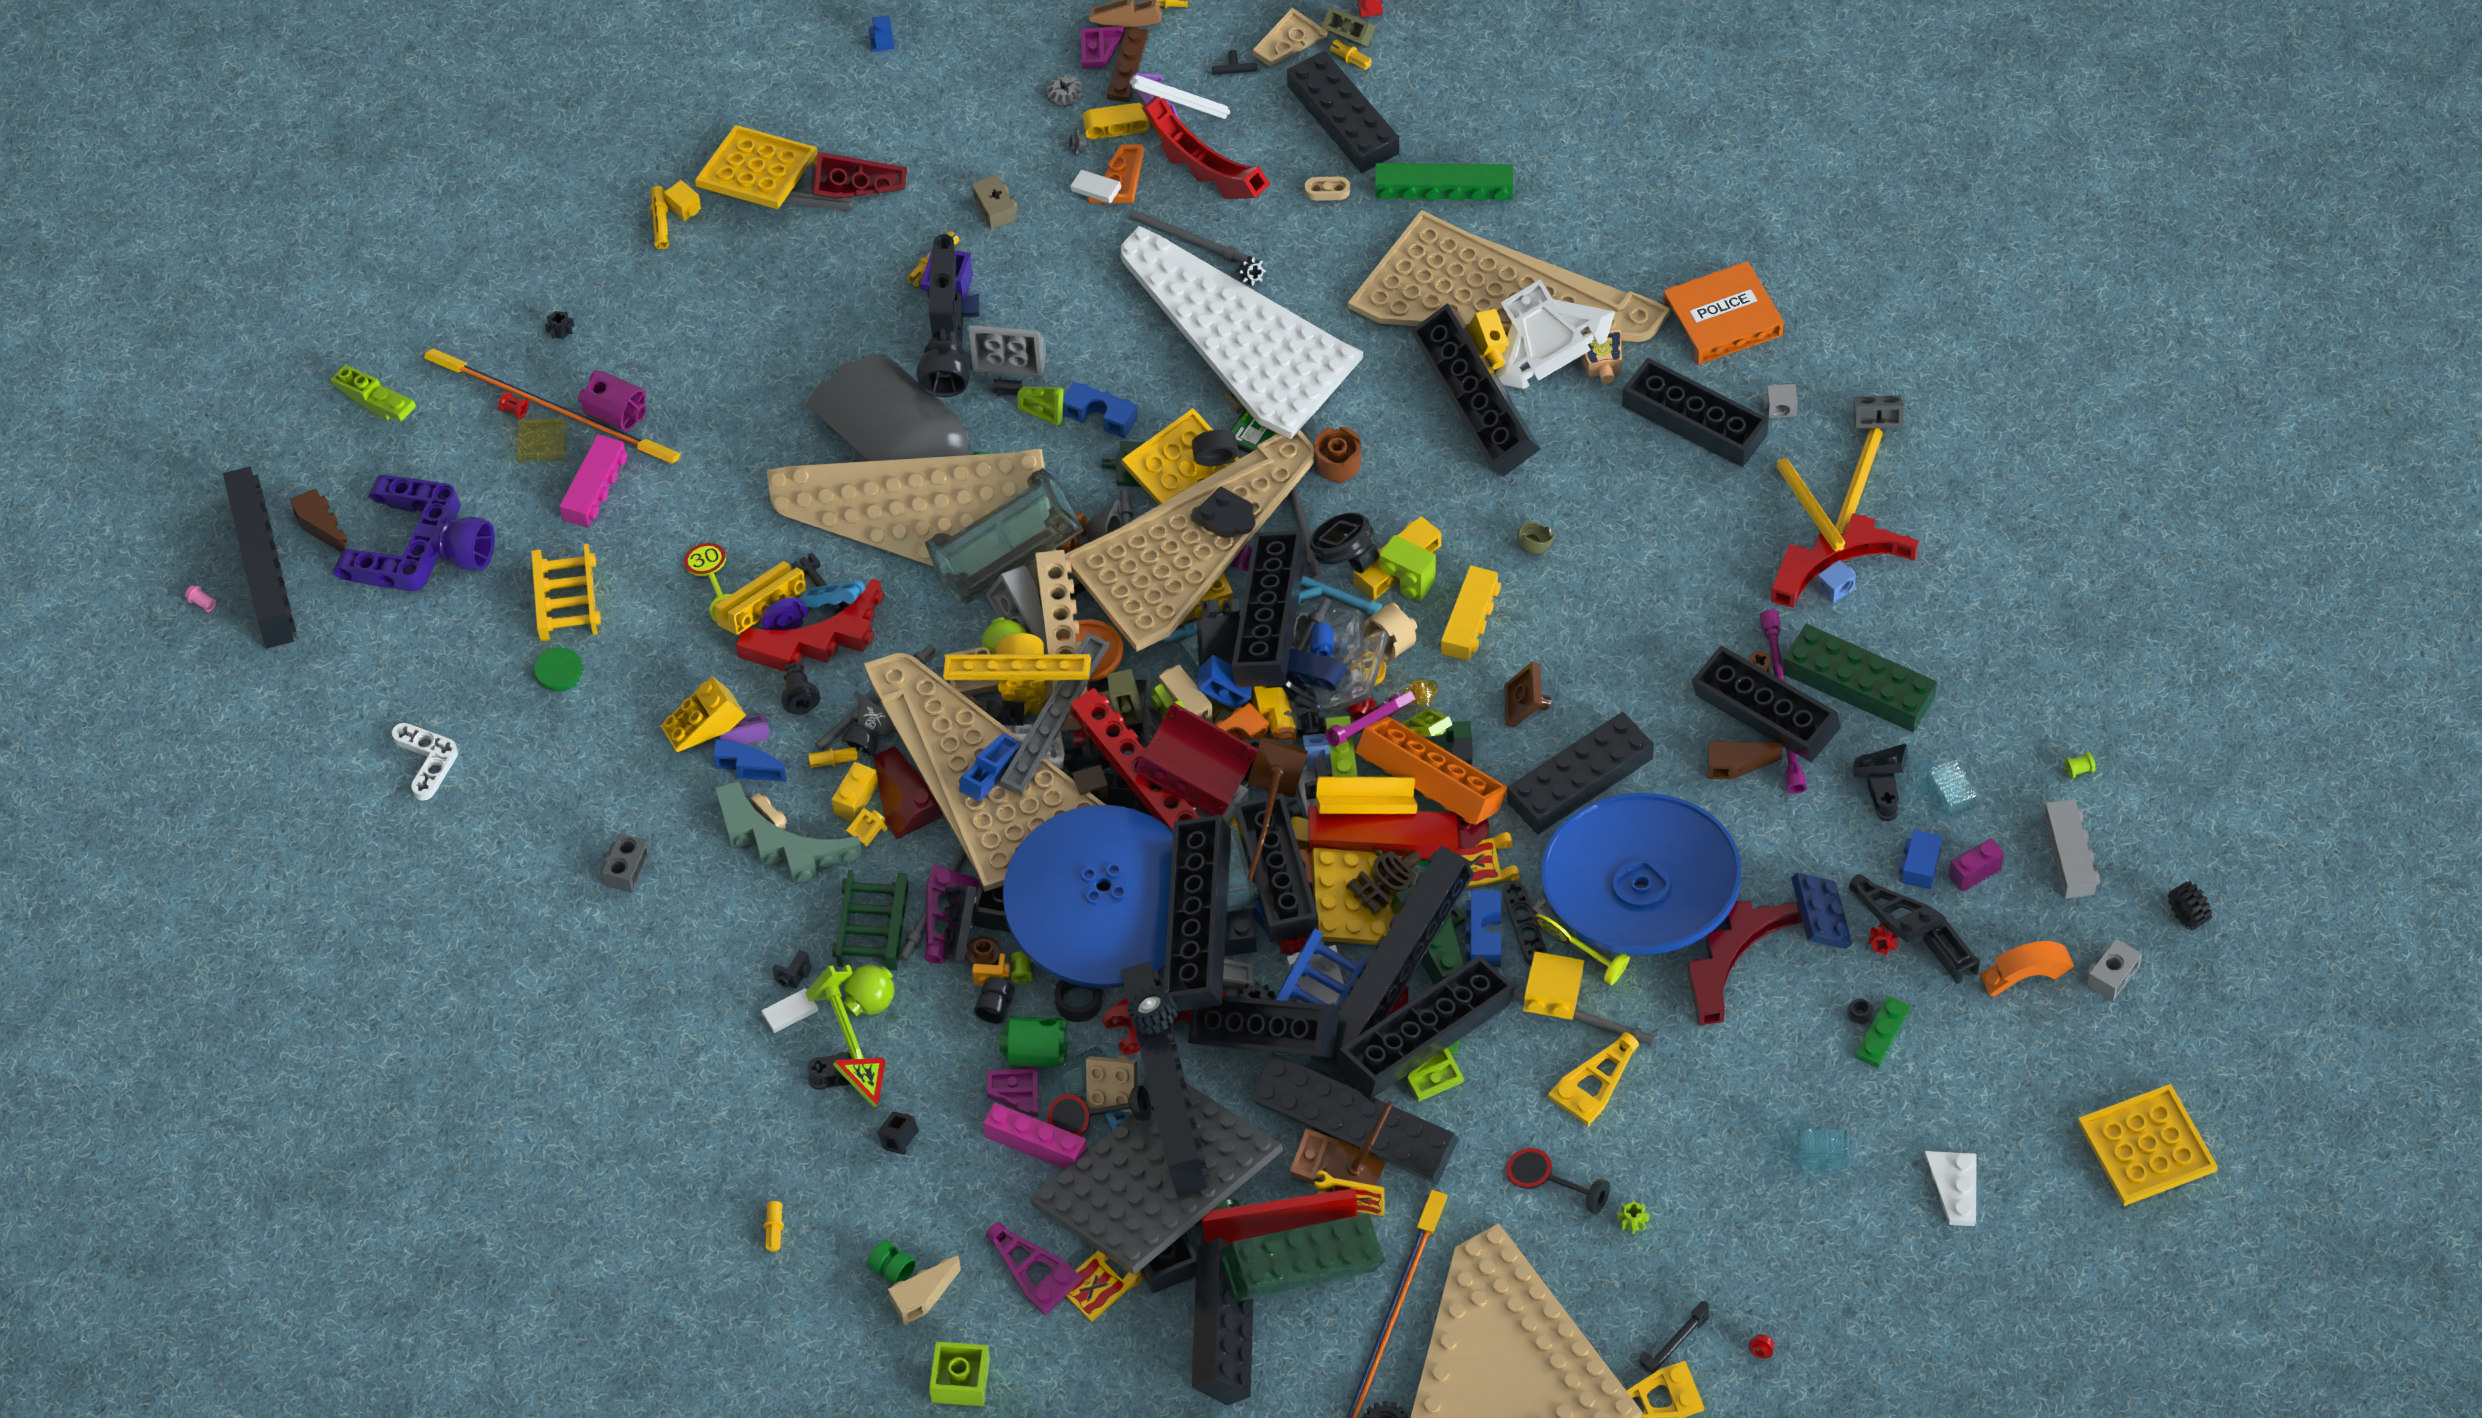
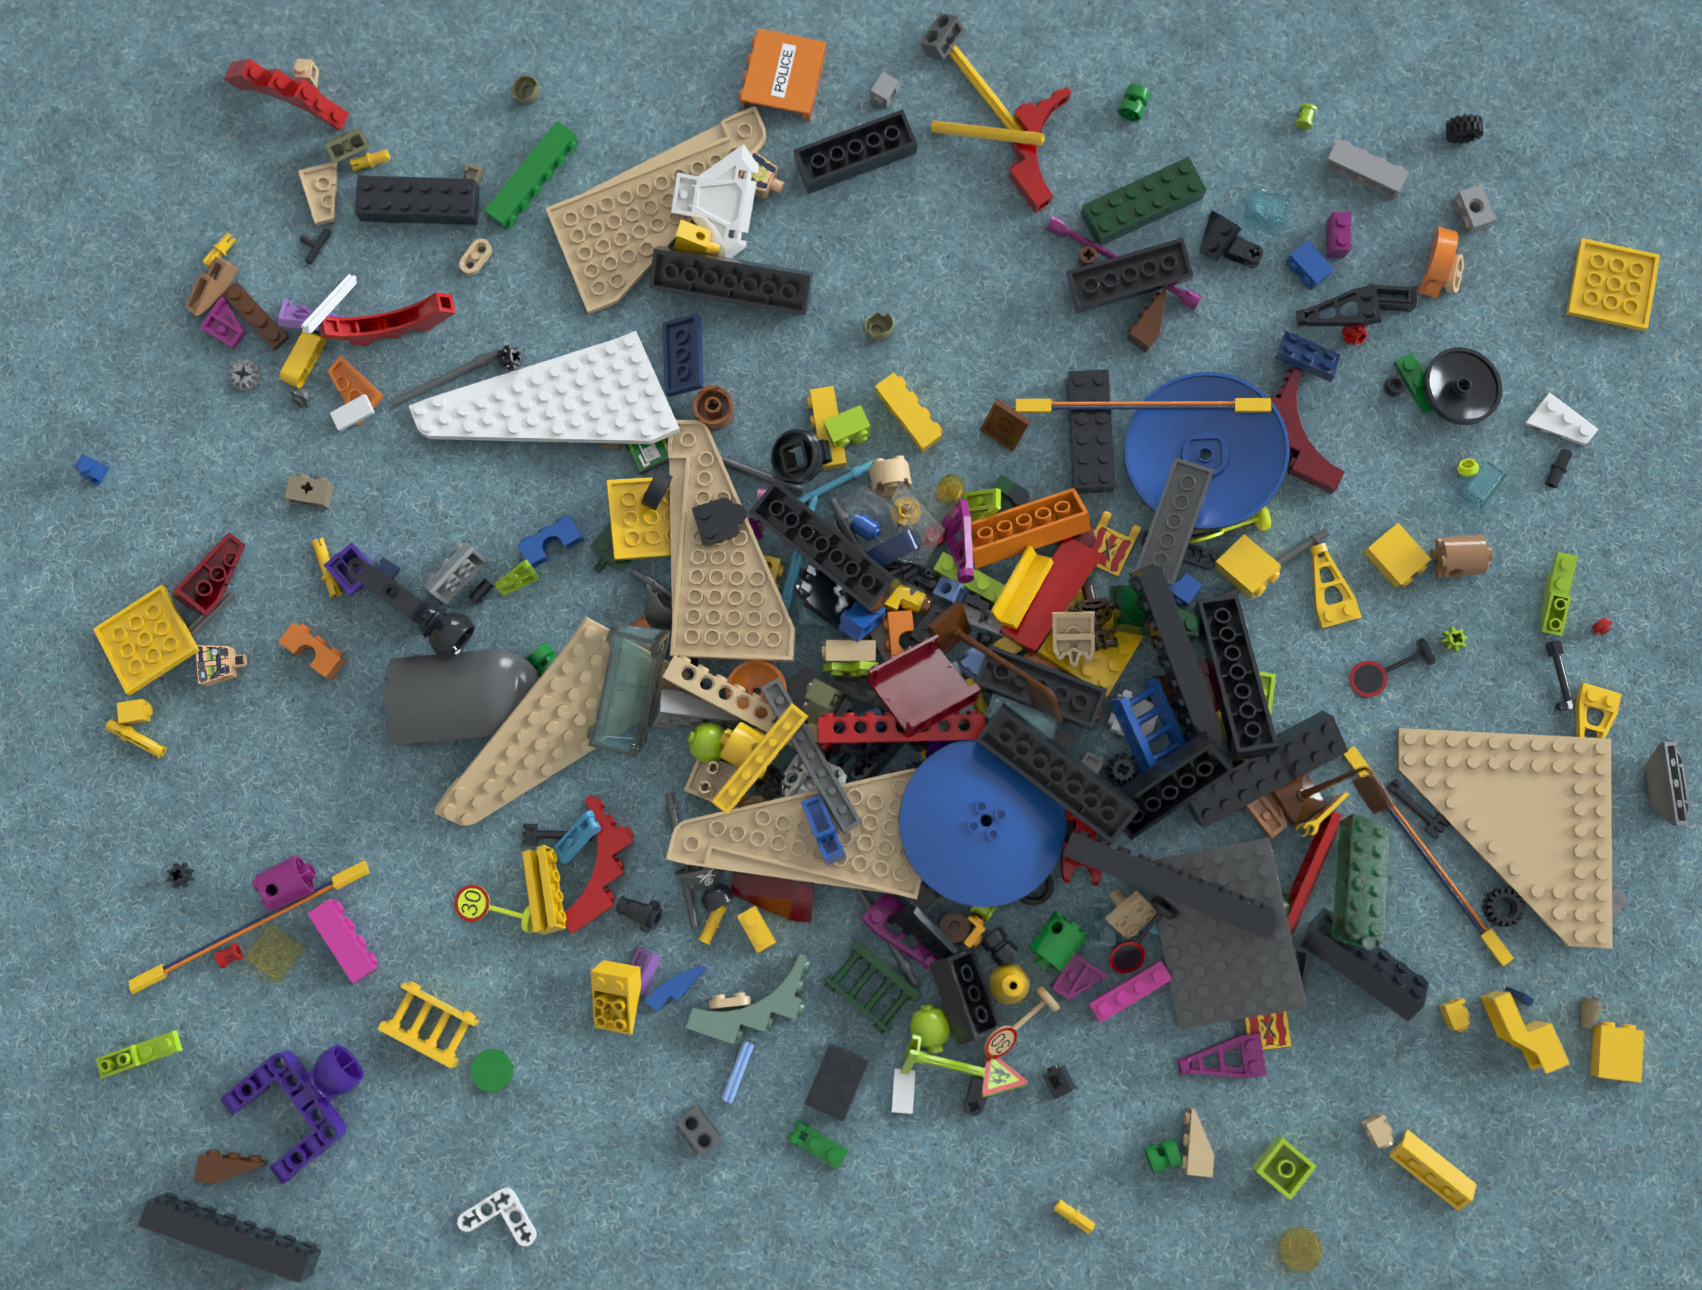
camera: 55 degrees left, 25 degrees up
(683, 971) = (818, 1145): none -> green plate
(704, 863) = (737, 1072): none -> light blue axle
(755, 944) = (836, 1081): none -> black brick
(775, 233) = (217, 664): none -> torso
(784, 615) = (572, 883): dark purple tile -> none
(794, 974) = (876, 1062): black bracket -> none
(846, 309) = (326, 660): none -> orange arch
(867, 826) = (791, 939): yellow bracket -> none
(902, 1057) = (1005, 1037): none -> tan piece
(921, 994) = (965, 996): none -> black brick
(963, 1031) = (1000, 980): none -> yellow cone
(1091, 780) = (880, 767): dark brown panel -> none
(1152, 1010) = (1128, 862): black wheel -> none
(1350, 859) = (1073, 635): none -> tan plate
(1368, 397) = (682, 355): none -> dark blue plate
(1408, 140) = (474, 172): none -> dark tan tile
(1424, 1313) = (1393, 787): none -> black hinge
(1524, 126) = (526, 90): none -> olive hair
(1541, 881) = (1175, 517): none -> dark grey plate
(1679, 1114) = (1397, 556): none -> yellow brick
(1706, 865) = (1241, 405): none -> piece
(1724, 1164) = (1461, 556): none -> medium nougat cylinder
(1763, 1284) = (1556, 593): none -> lime slope
(1828, 1122) = (1468, 467): none -> neon yellow plate
(1836, 581) = (1055, 160): medium blue brick -> none
(1901, 1210) = (1558, 468): none -> black axle
(1909, 1064) = (1462, 386): none -> black dish
(1956, 609) = (1134, 101): none -> green wheel
(2026, 992) = (1454, 278): none -> tan plate

